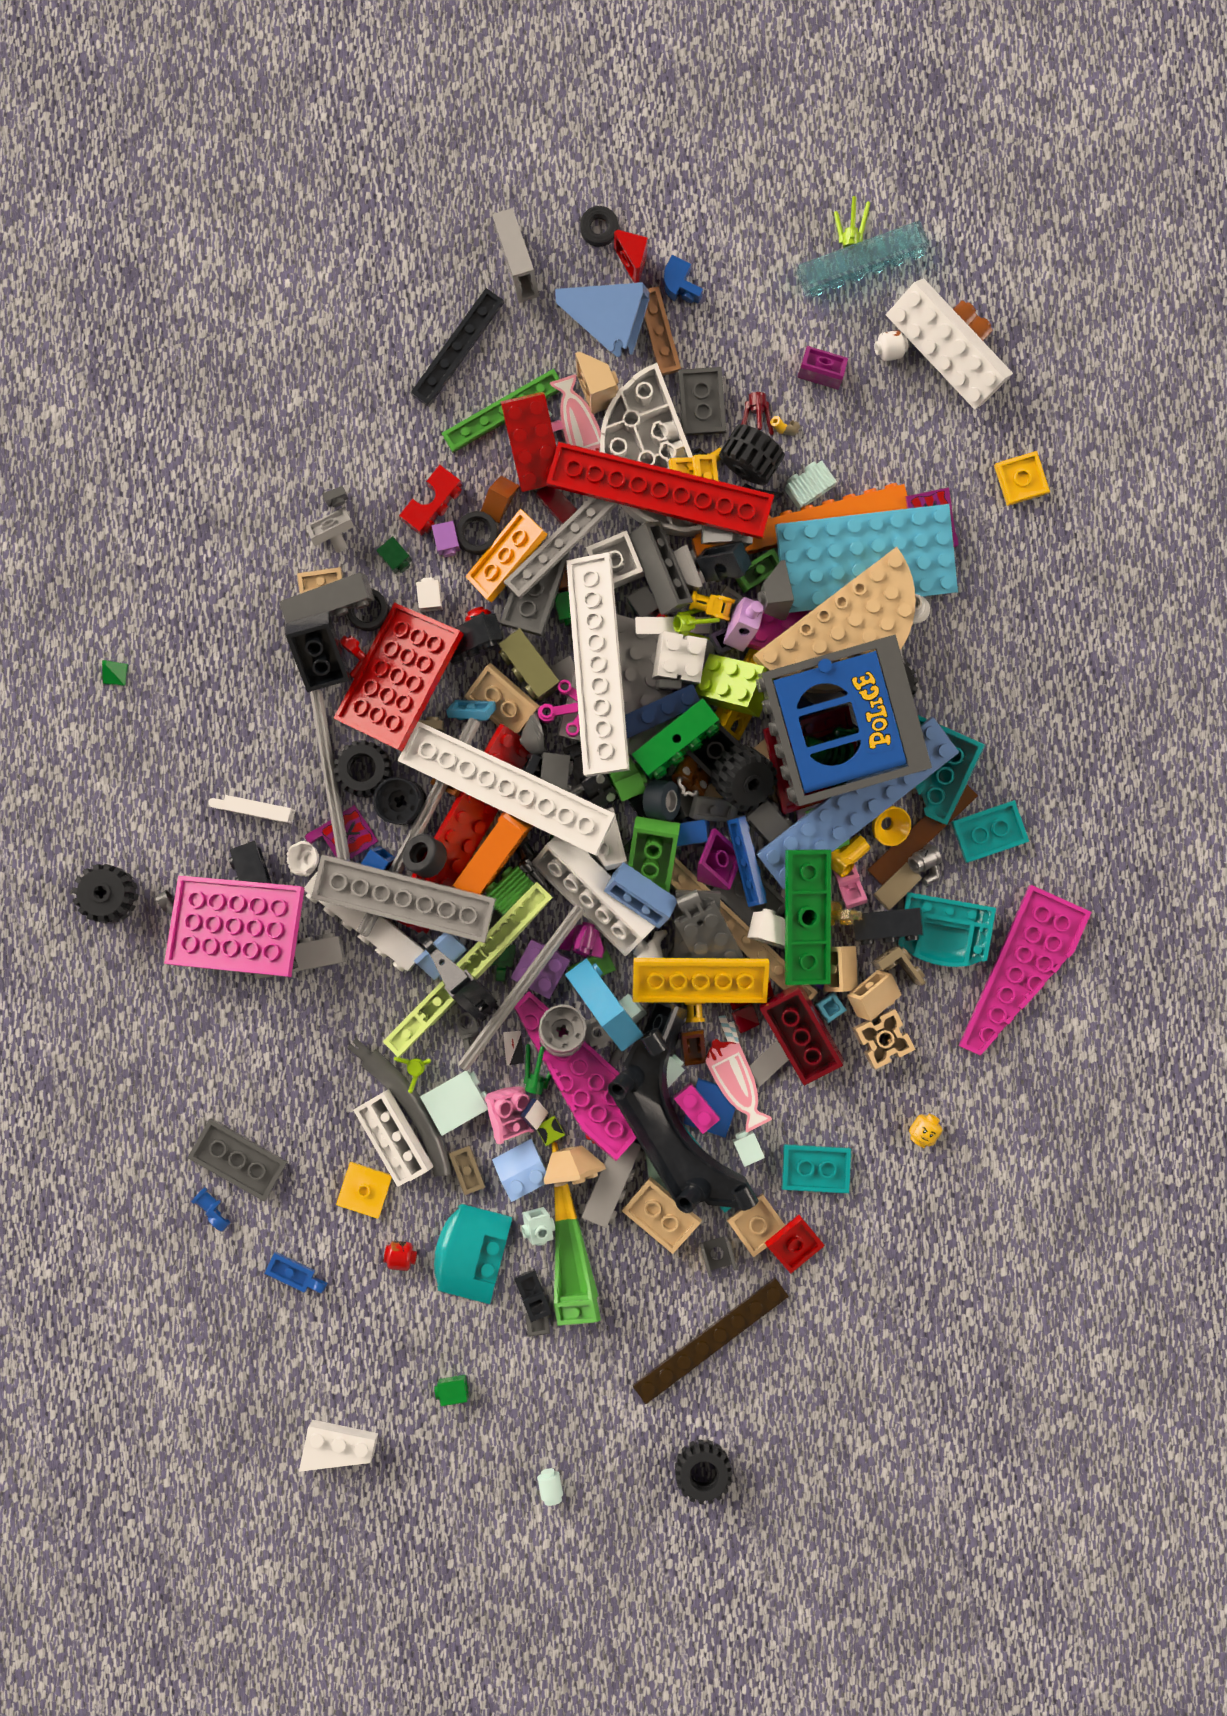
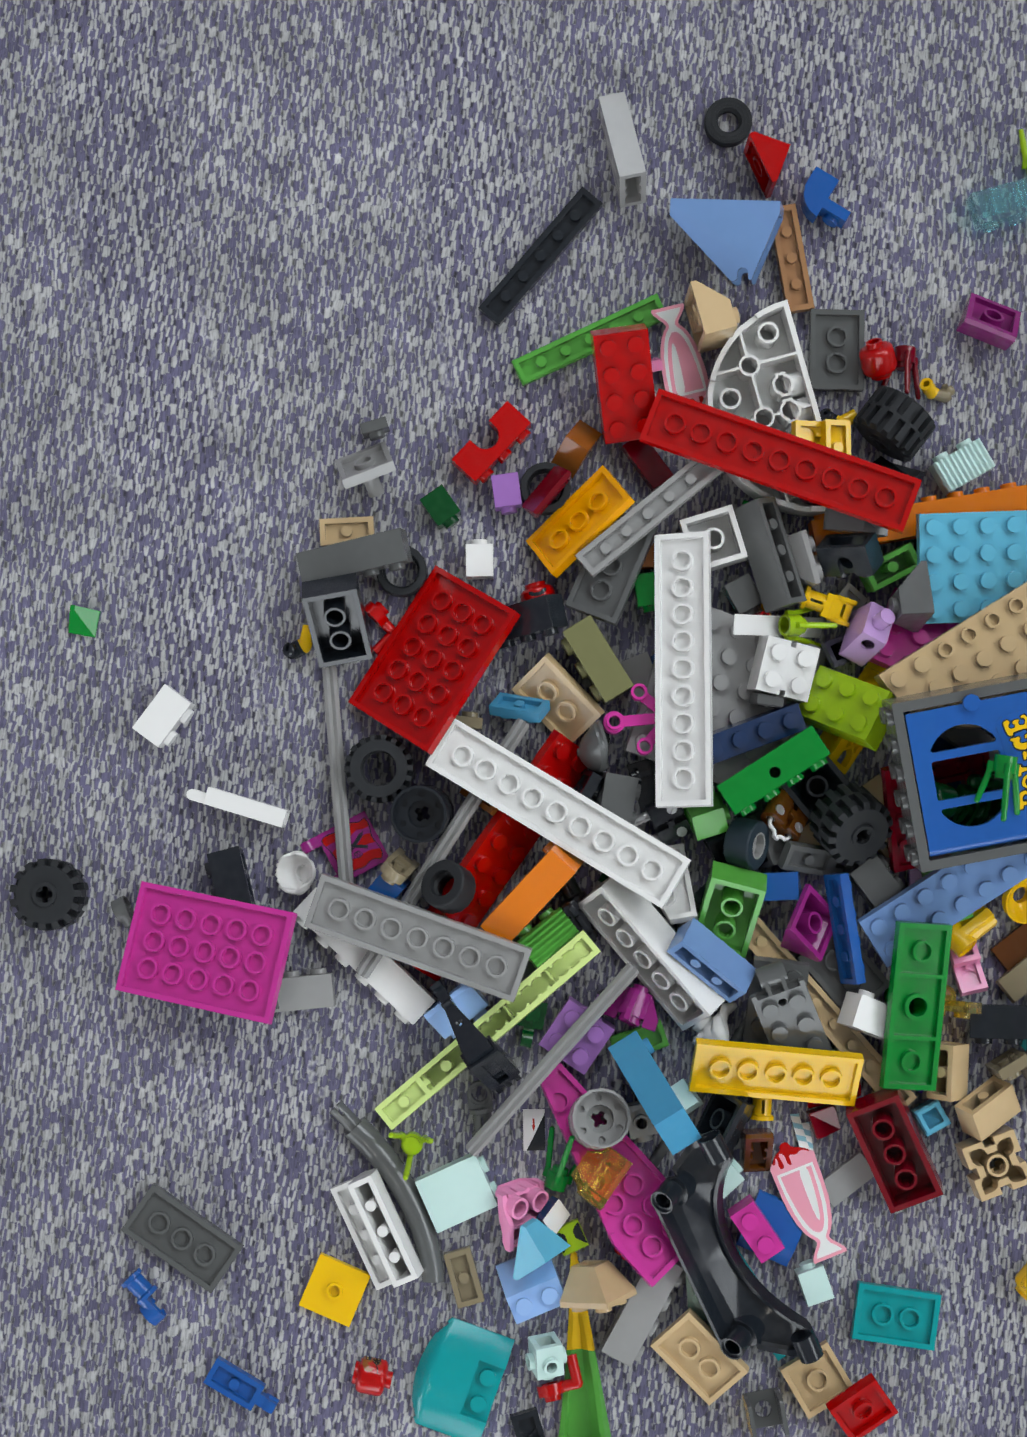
camera: 10 degrees right, 0 degrees up
(186, 743) = (164, 717): none -> white brick
(290, 678) = (299, 647): none -> arm
(383, 845) = (398, 867): none -> dark tan plate
(478, 534) = (547, 491): none -> dark red slope
(521, 1139) = (536, 1247): none -> medium azure slope
(546, 1254) = (552, 1390): none -> red plate
(567, 1075) = (599, 1175): none -> clear yellow slope
(735, 405) = (878, 359): none -> red head
(857, 715) = (1008, 769): none -> green plant

